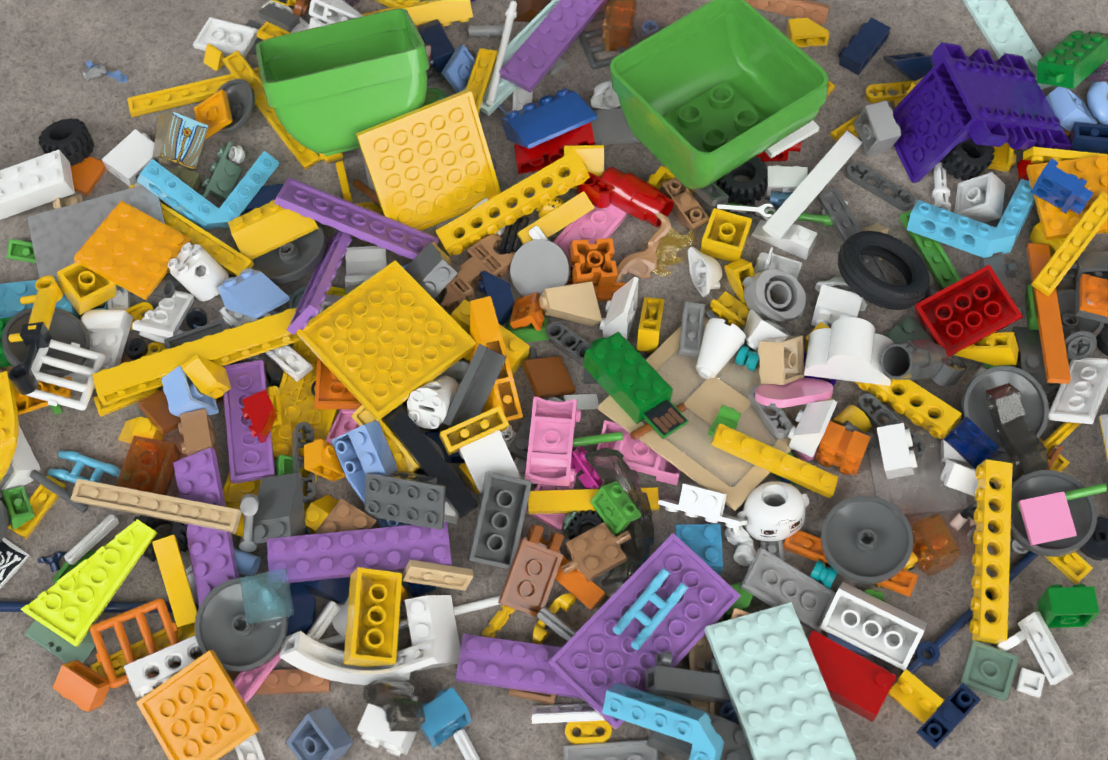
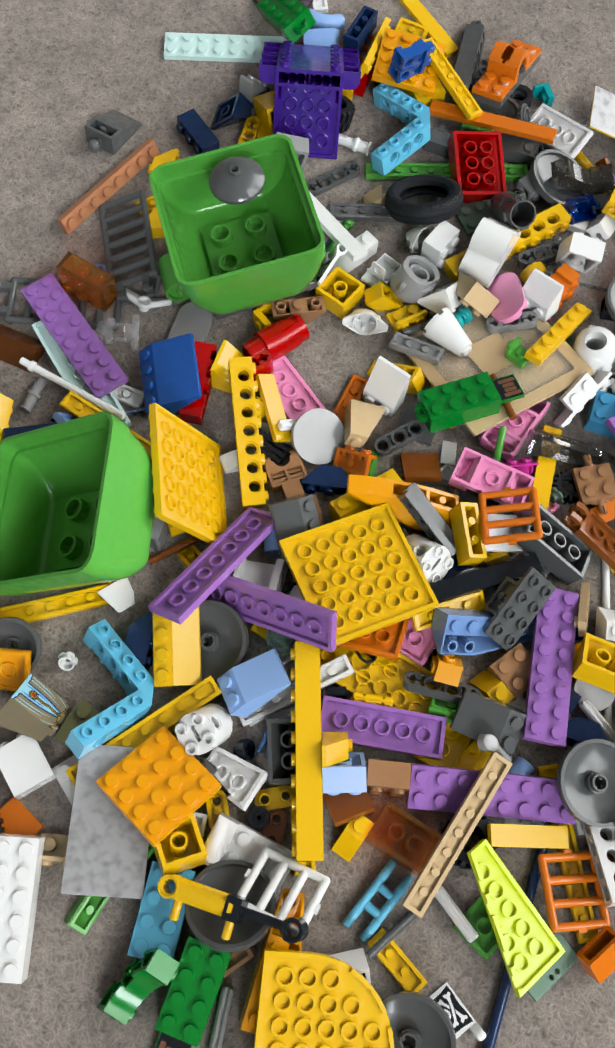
camera: 80 degrees left, 5 degrees up
(18, 506) = (395, 980): bright green slope -> none
(52, 560) = (460, 957): dark blue plant -> none
(222, 177) = (86, 683): sand green bracket -> none
(261, 413) = (387, 710): red slope -> none
(266, 596) = (587, 749): clear light blue plate -> none
(313, 170) = (119, 595): none -> white sticker
(343, 181) = (154, 570): yellow tile -> none
(499, 475) = (512, 539): none -> orange bar
(585, 73) = (131, 331): none -> clear tile
(593, 262) = (331, 392): orange brick -> none
(605, 96) = (155, 322): white hat -> none
(615, 507) = (564, 456): bright green bracket -> none
(659, 253) = (336, 347): piece -> none
(750, 61) = (236, 180): none -> dark grey dish
(980, 198) = (372, 124): white slope -> none
(994, 350) = (513, 161): yellow slope -> none

